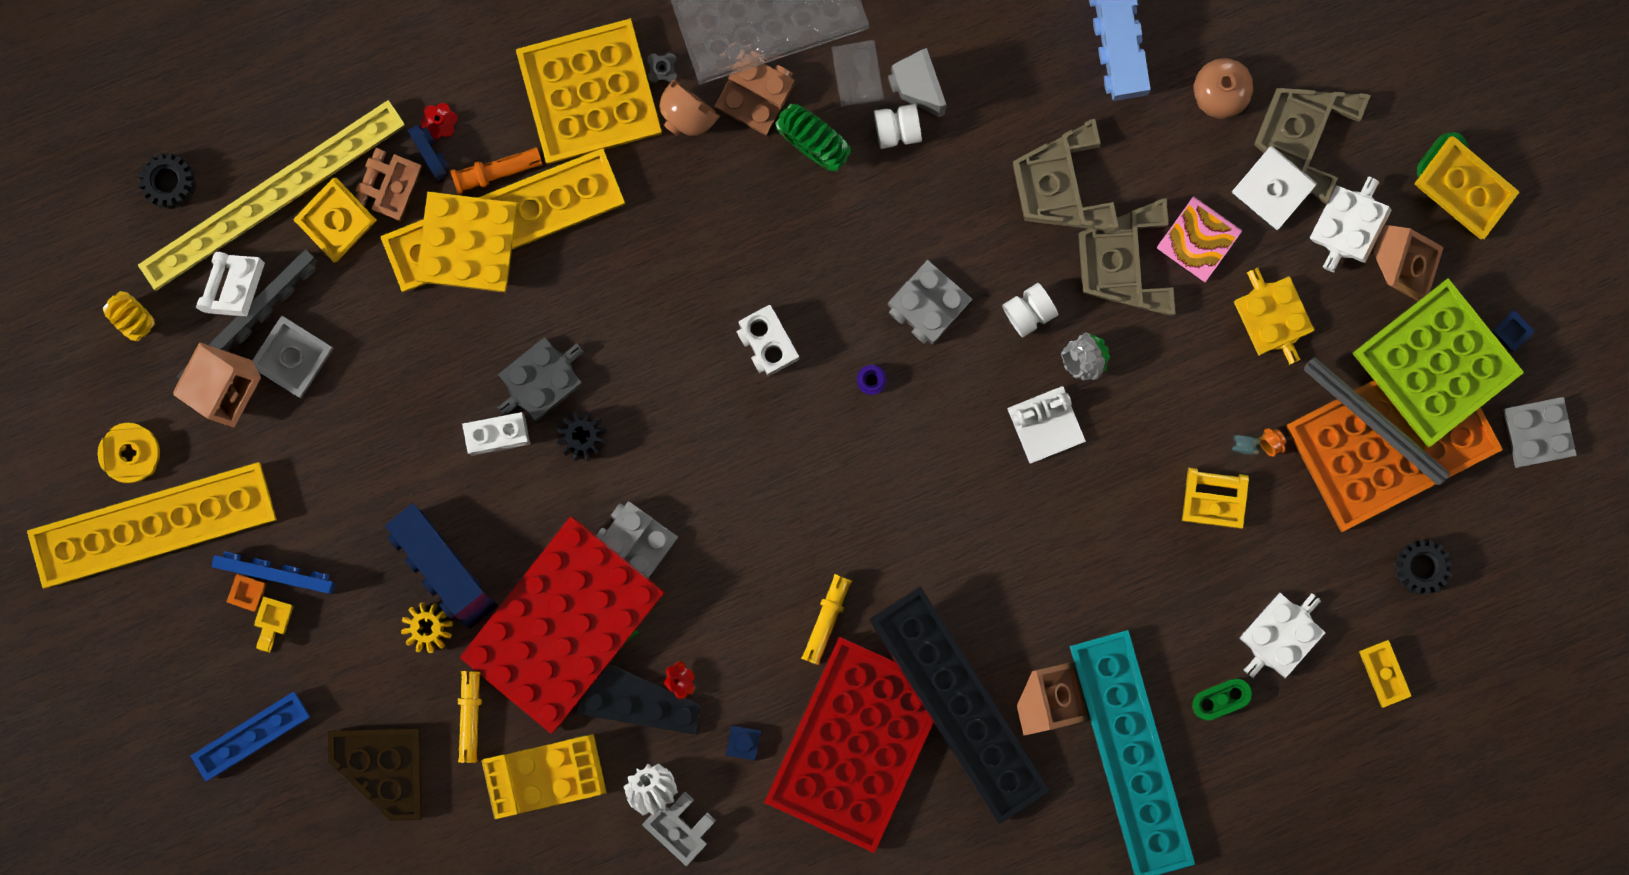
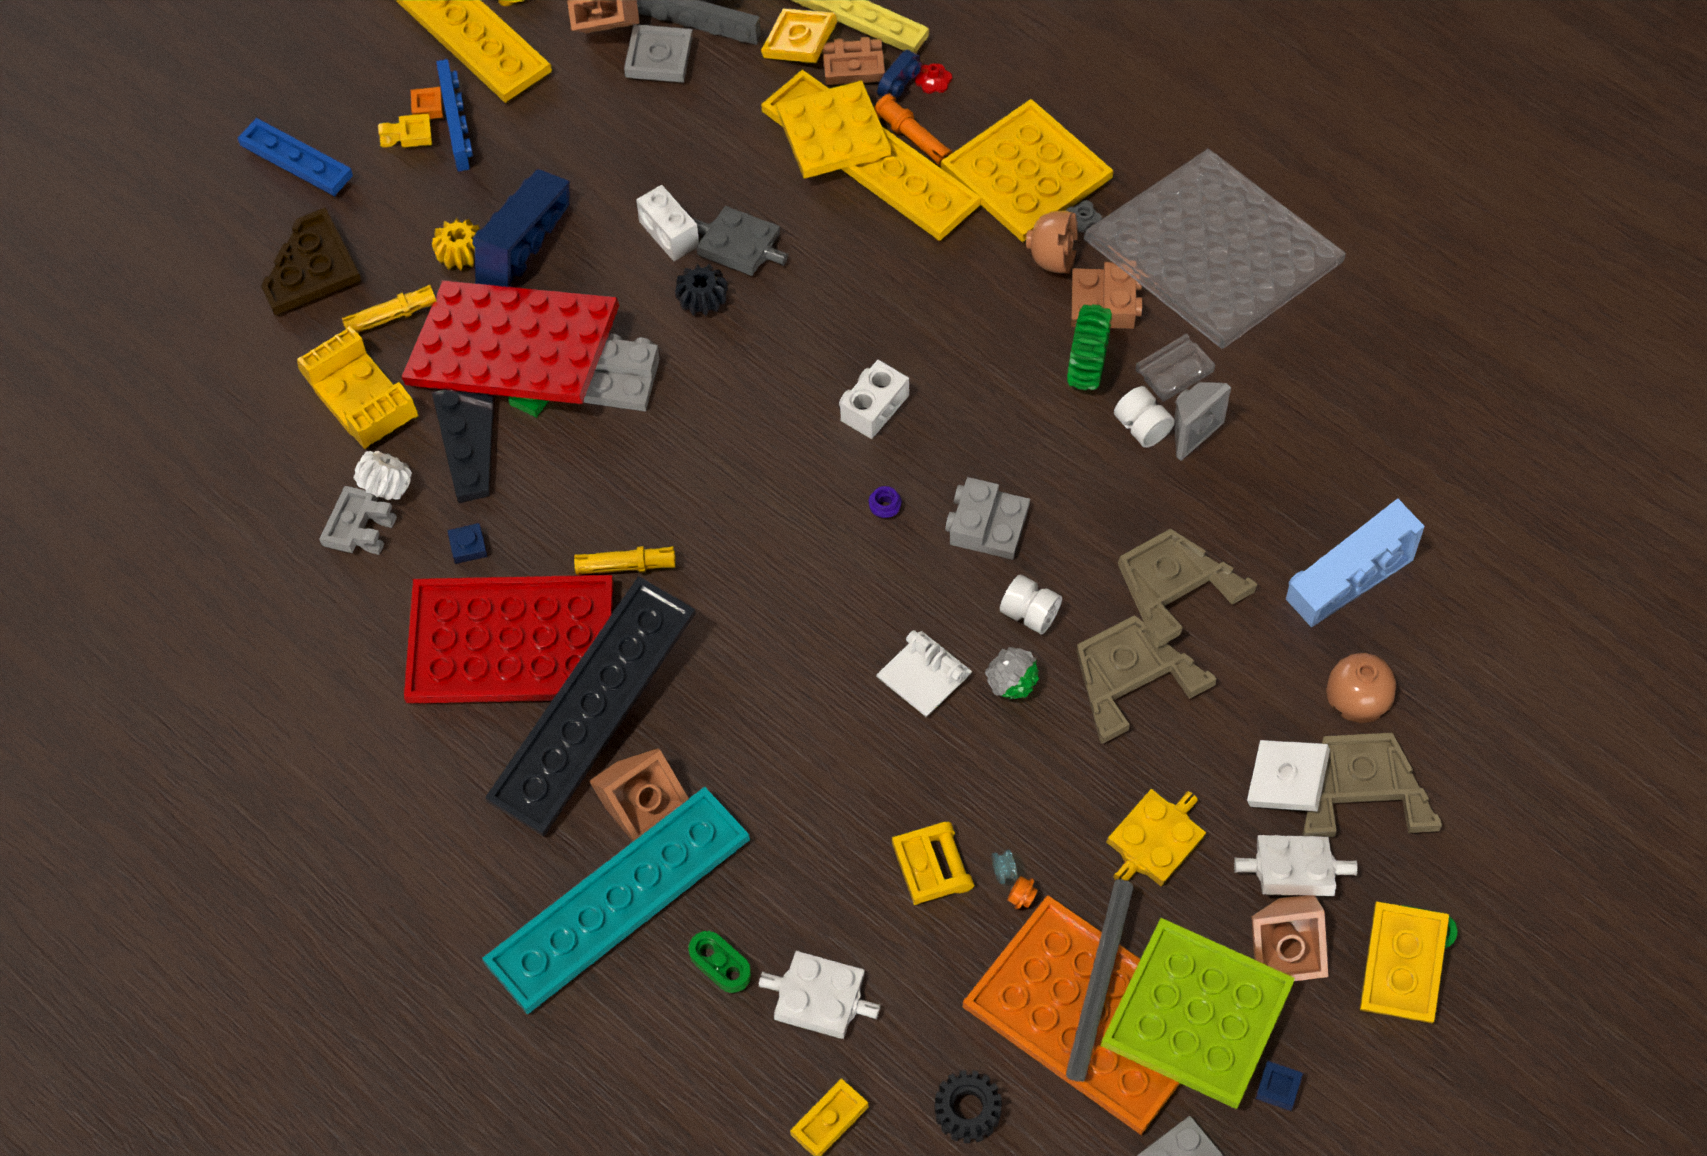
camera: 65 degrees right, 25 degrees down
(679, 680) = (508, 464): red plant -> none
(1199, 239) = (1193, 731): slope -> none

